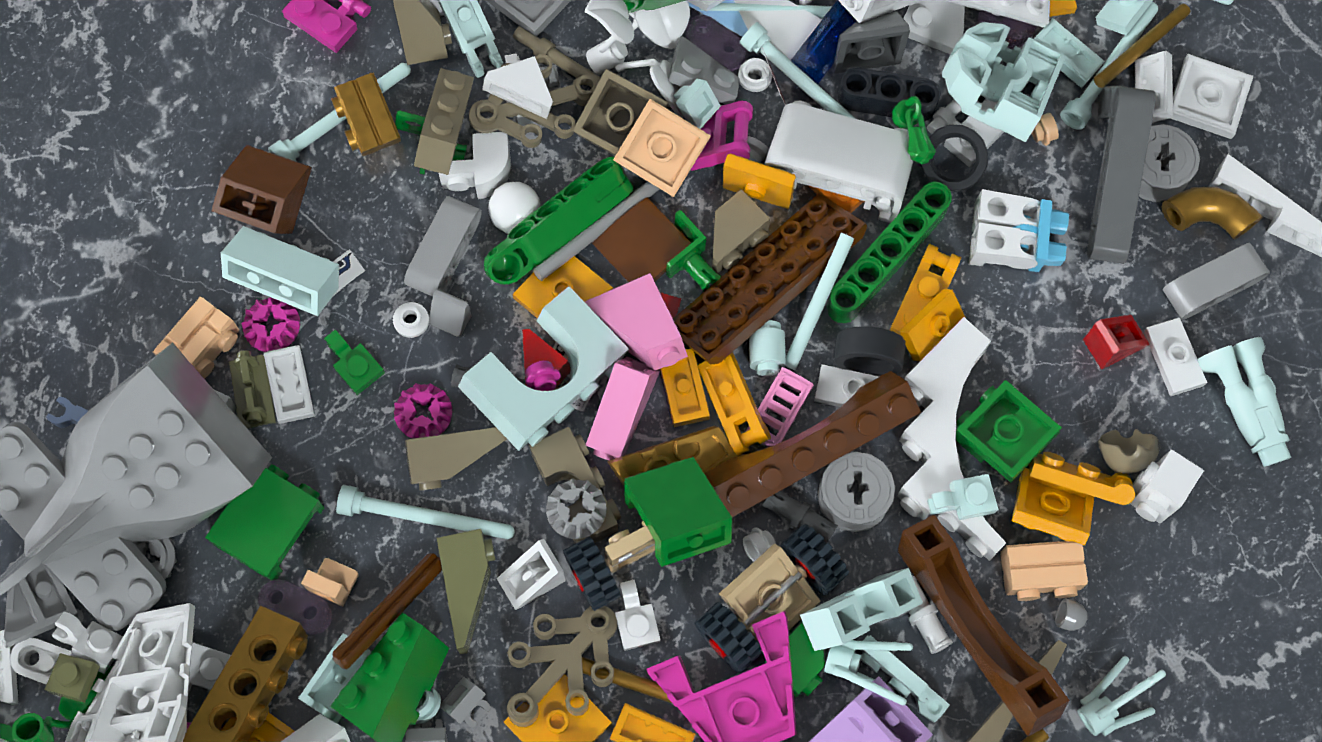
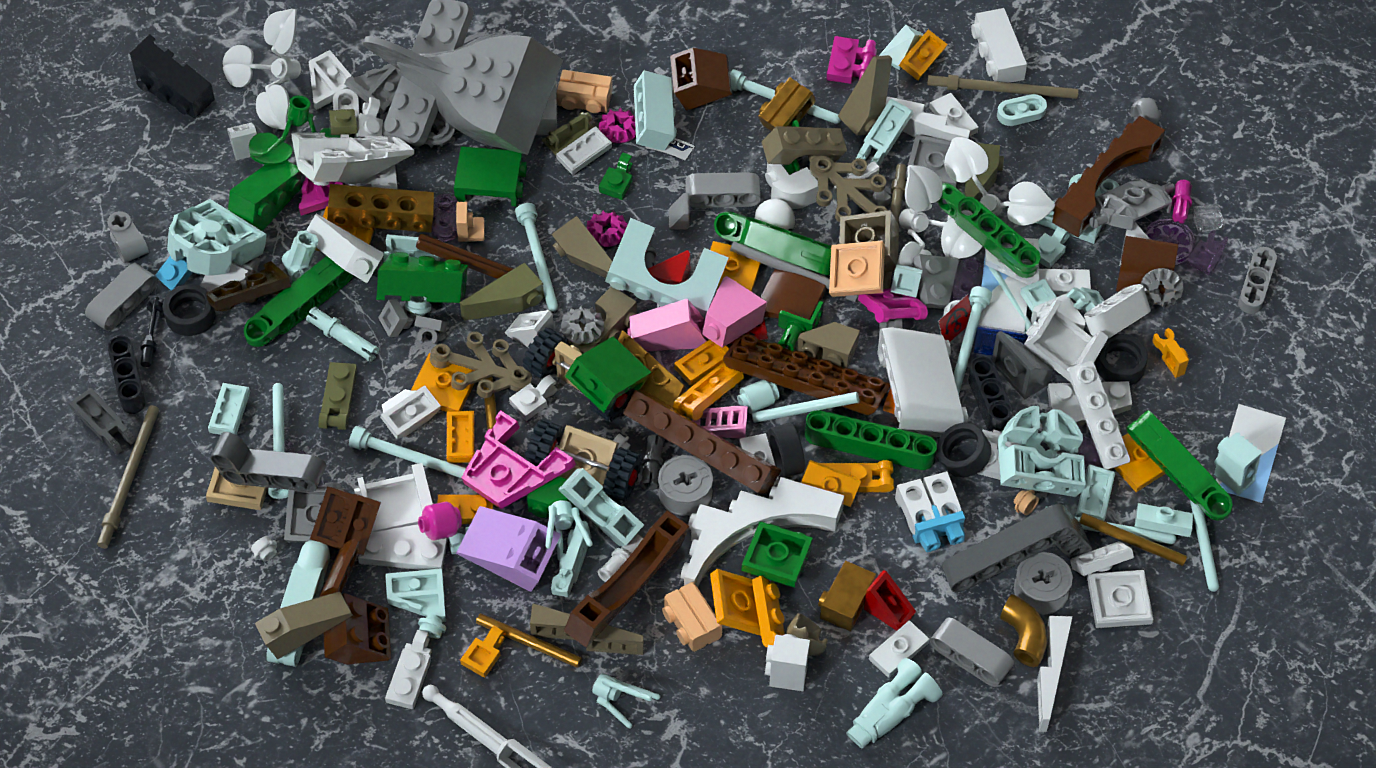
camera: 65 degrees right, 15 degrees down
(411, 329) = (663, 201): white plate -> none
(521, 85) = (852, 171): white slope -> none
(542, 376) = (658, 267): dark pink plate -> none
(758, 180) = (870, 338): light orange plate -> none
(906, 116) = (956, 416): green piece -> none
(968, 496) = (711, 543): light aqua plate -> none
(1070, 615) = (669, 648): light grey hinge -> none
(1089, 378) = (846, 596): none -> pearl gold brick

